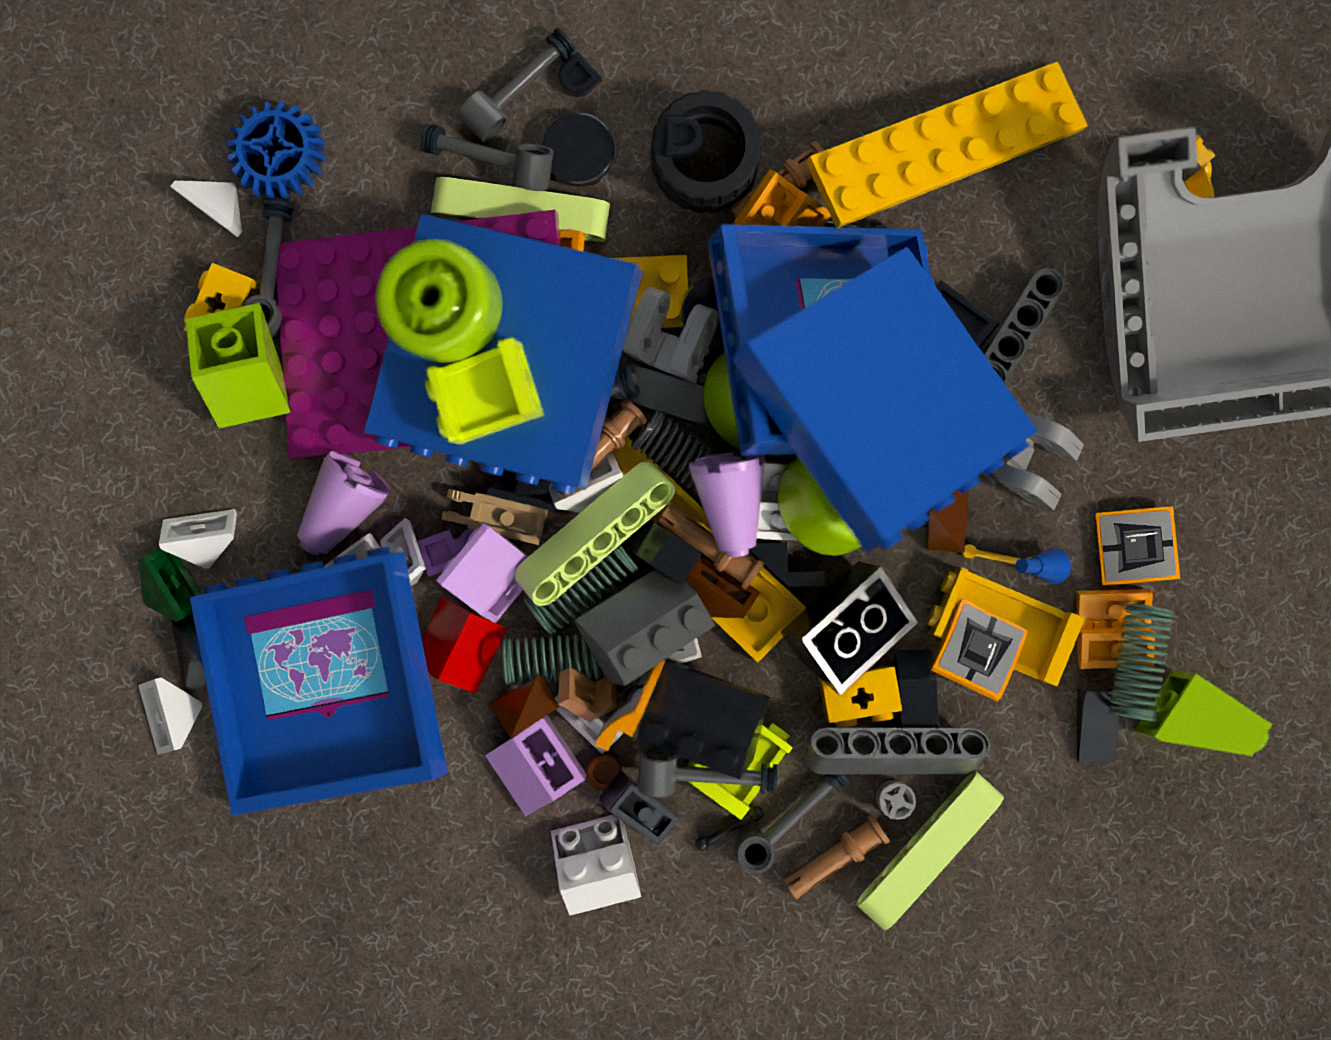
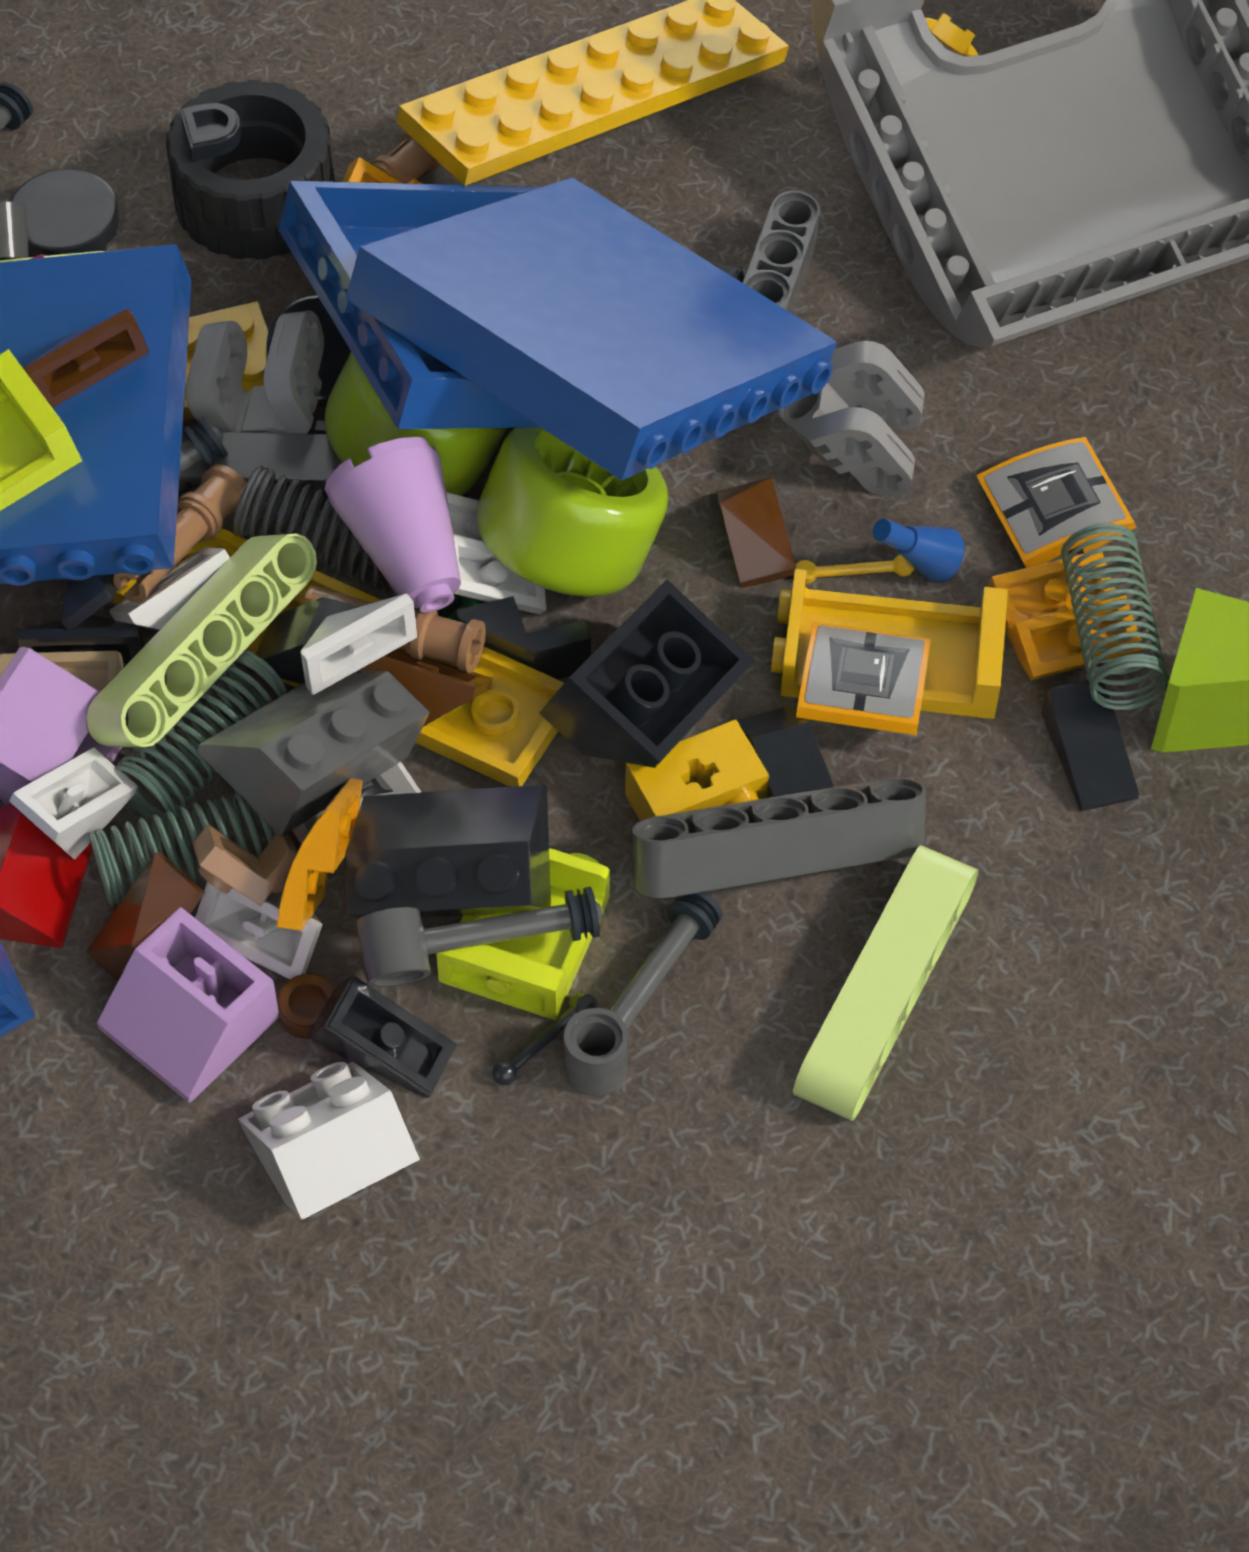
camera: 15 degrees left, 30 degrees down
(497, 624) = (75, 800): none -> white slope
(557, 340) = (87, 357): none -> reddish brown slope
(578, 76) = (45, 141): black tile -> none
(678, 575) = (356, 639): none -> white slope
(851, 847) = (754, 1011): medium nougat pin -> none
(901, 802) = (809, 906): light grey wheel -> none

